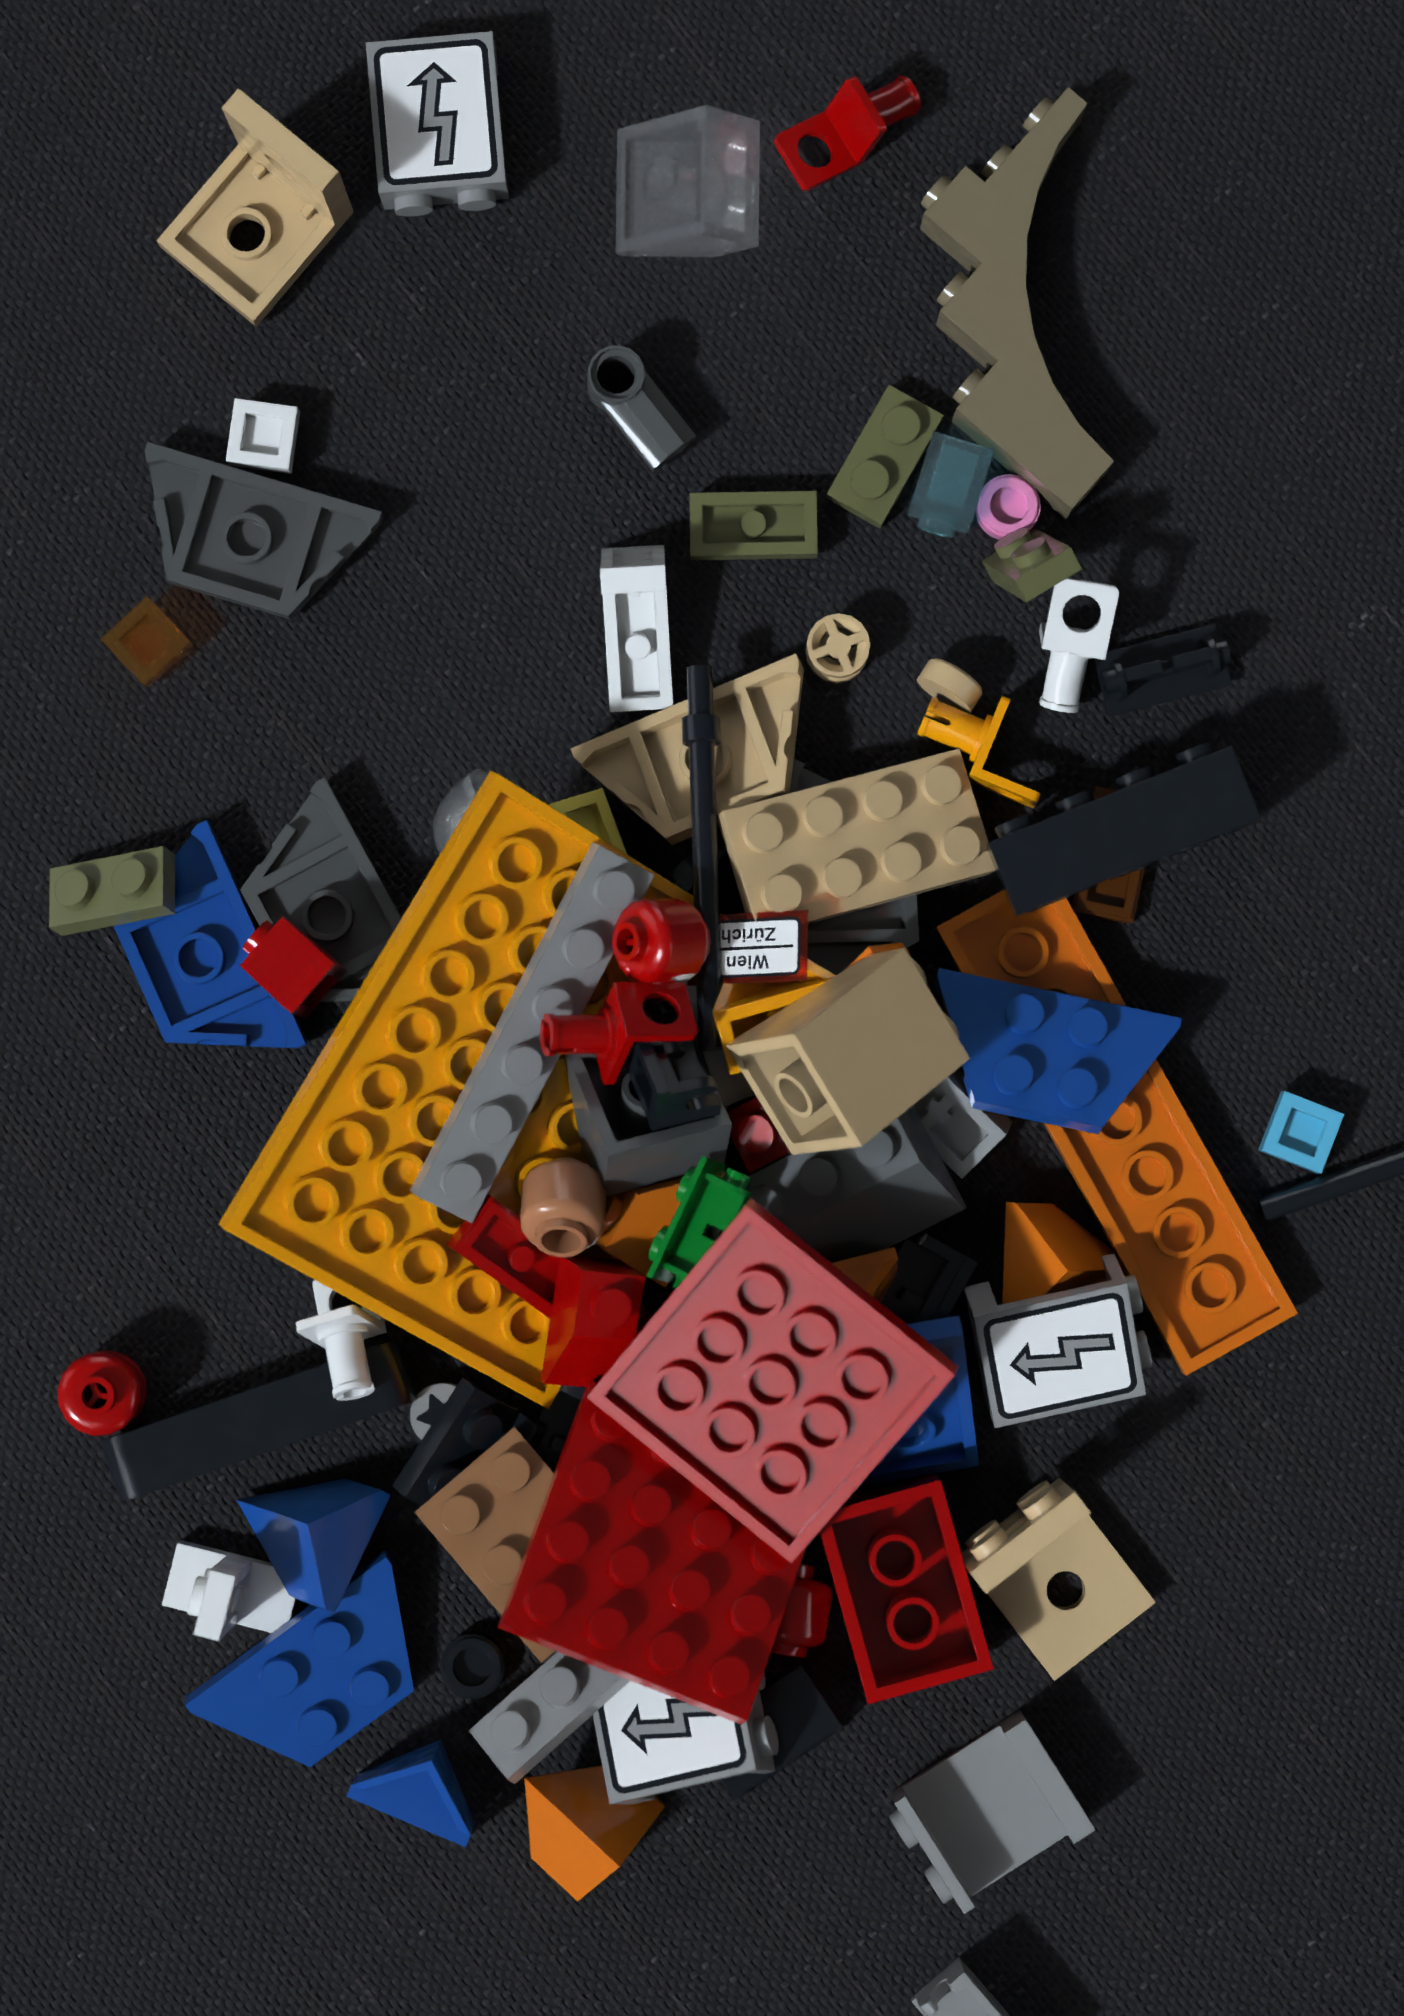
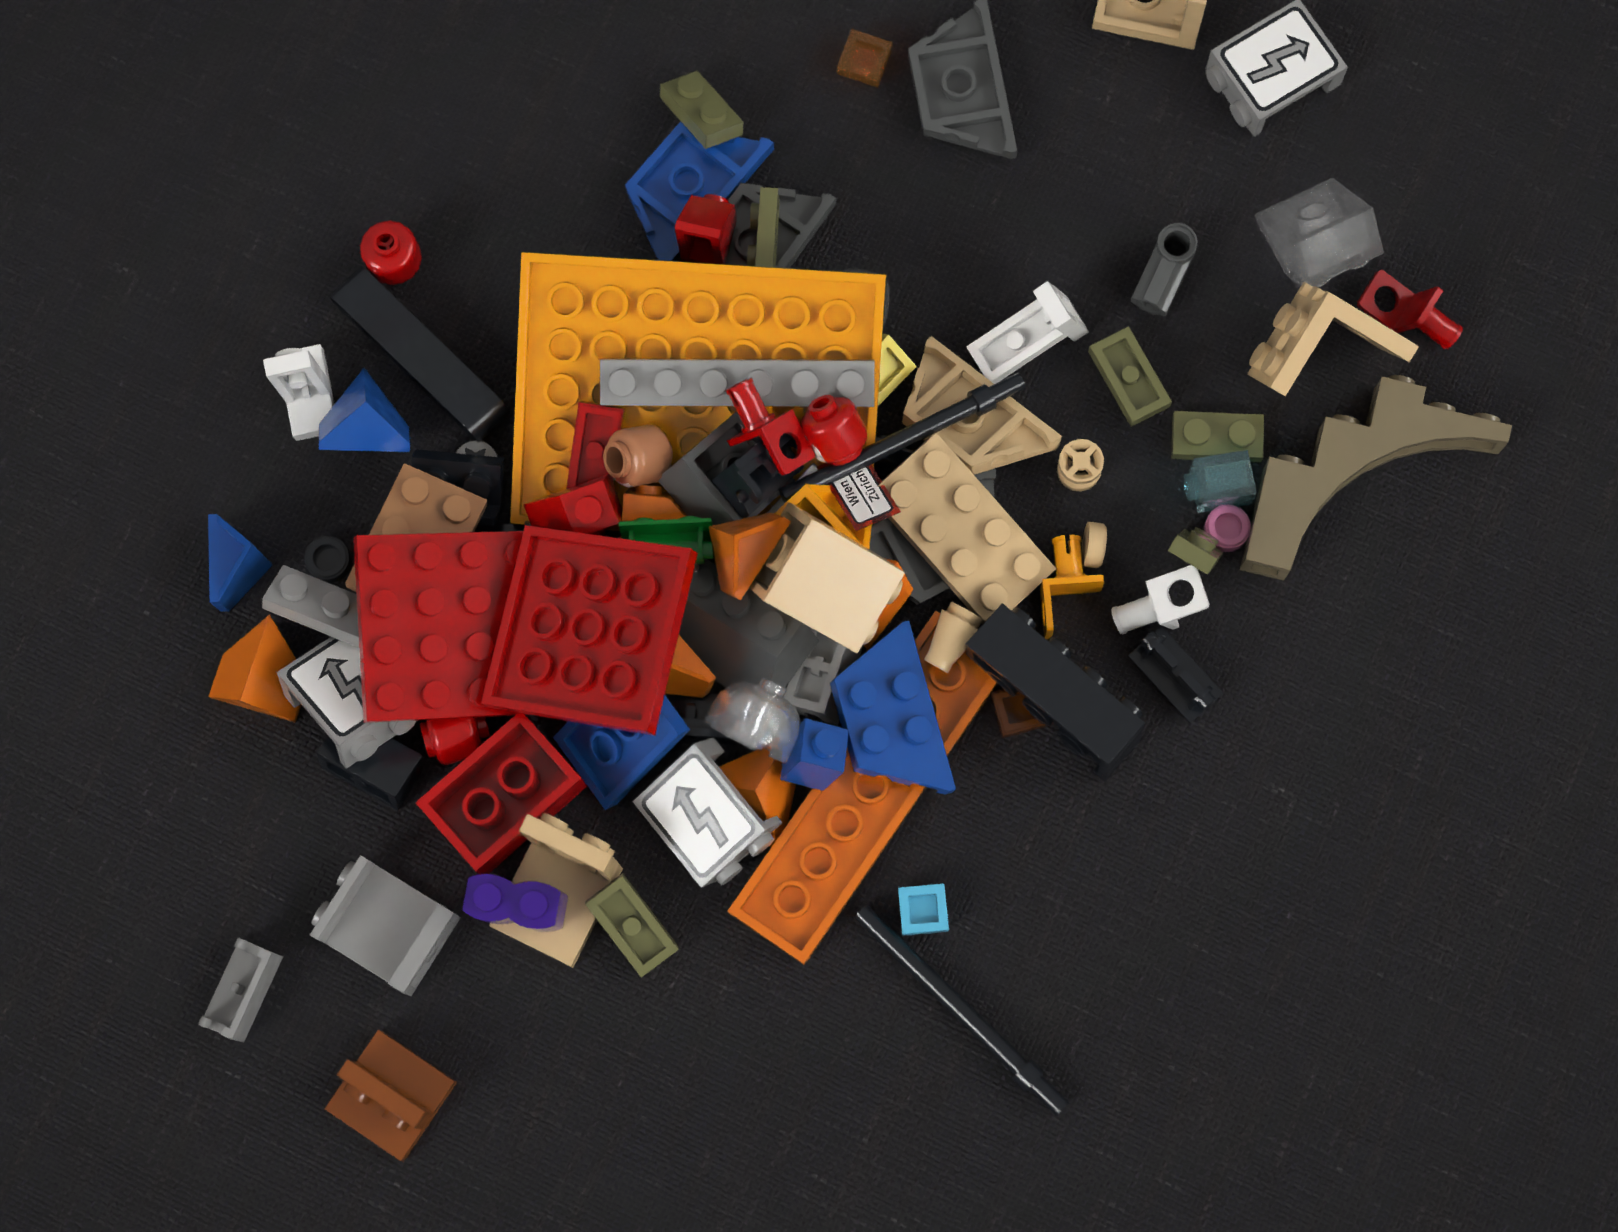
camera: 70 degrees right, 10 degrees down
(262, 436) = (1026, 62): white plate -> none
(314, 884) = (765, 219): none -> olive plate
(317, 1673) = (279, 466): blue wing -> none
(343, 1337) = (496, 371): white bracket -> none
(764, 1132) = (743, 548): none -> orange slope
(816, 276) = (1301, 327): none -> tan bracket
(984, 1225) = (757, 717): none -> clear cylinder
(986, 922) = (951, 635): none -> tan cone
(1042, 1649) = (505, 902): none -> dark purple brick
(1056, 1172) = (817, 755): none -> blue brick
(1145, 1502) = (632, 925): none -> olive plate
(1202, 1900) = (390, 1095): none -> dark orange bracket

